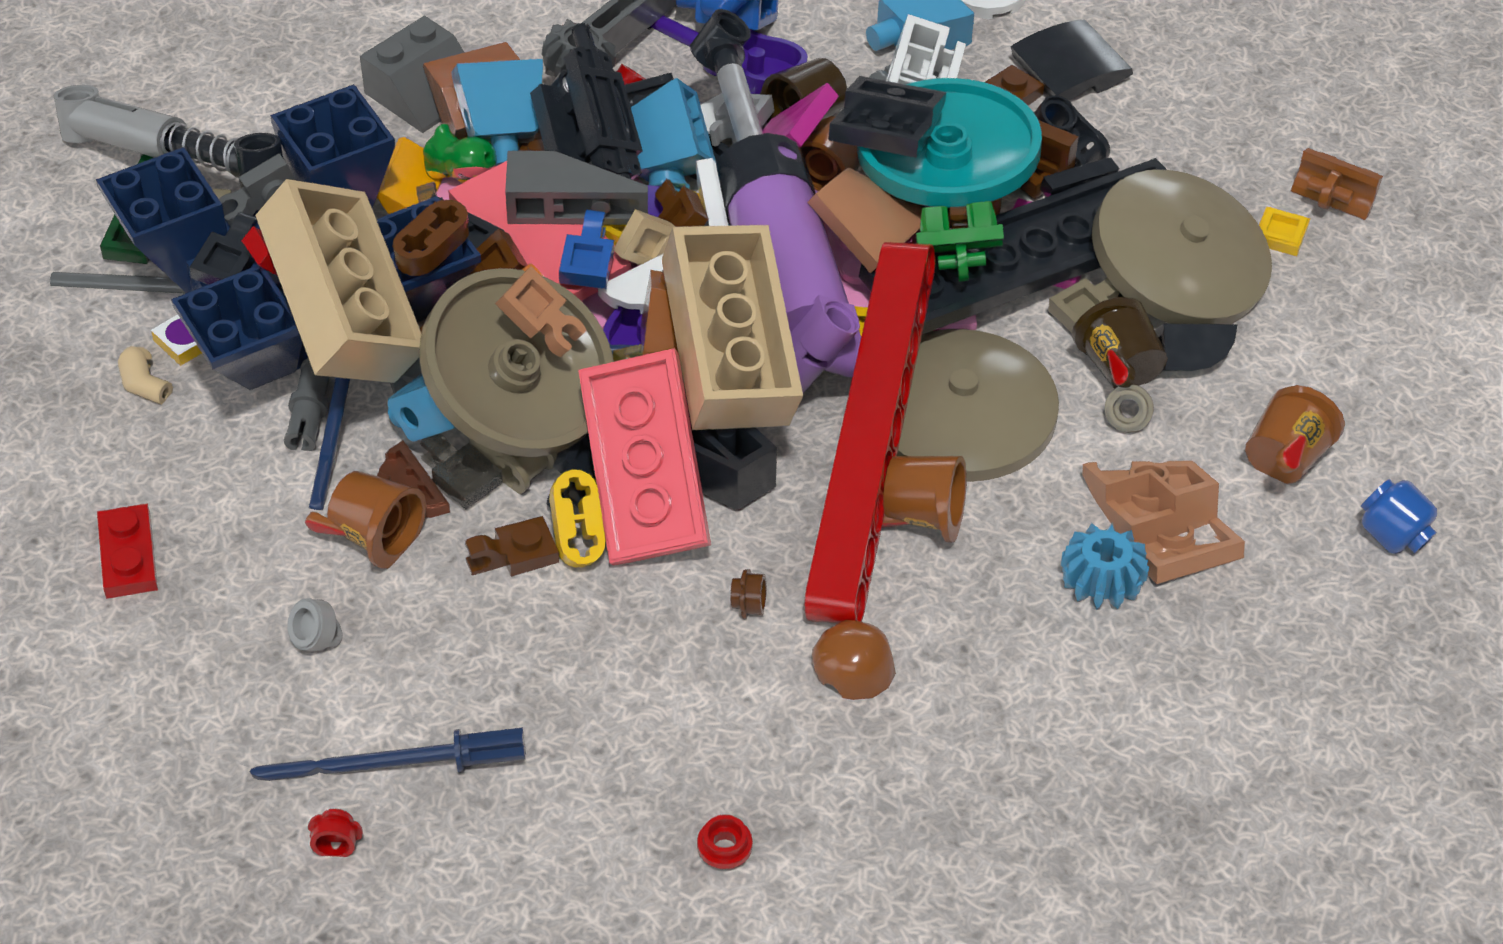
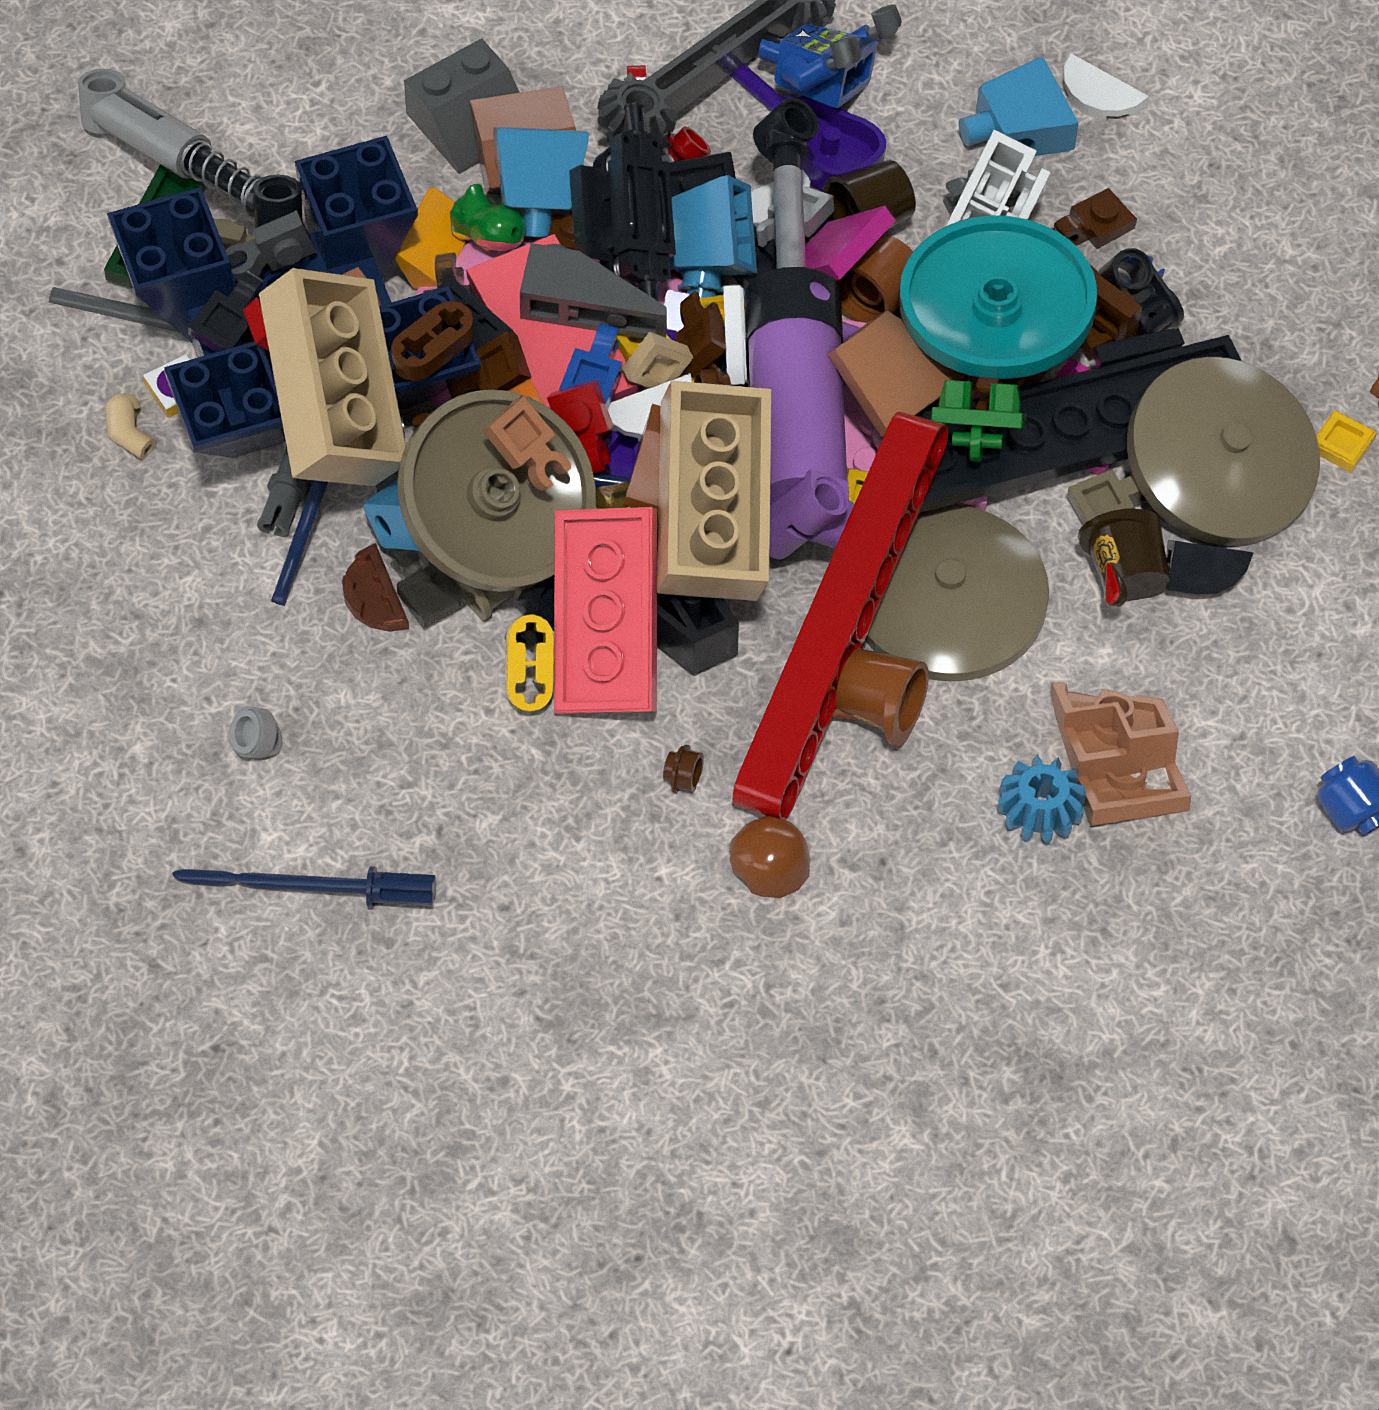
camera: 10 degrees right, 10 degrees up
(127, 551) = (87, 620): red plate -> none
(334, 826) = (241, 943): red plate -> none
(374, 515) = (331, 625): dark orange hat -> none
(517, 546) = (469, 679): reddish brown plate -> none
(592, 288) = (588, 417): none -> red plate
(724, 828) = (603, 1008): red plate -> none
(887, 116) = (937, 259): black slope -> none
(1071, 59) = (1175, 191): black slope -> none
(1118, 419) = (1106, 635): dark tan plate -> none
(1294, 433) = (1273, 687): dark orange hat -> none

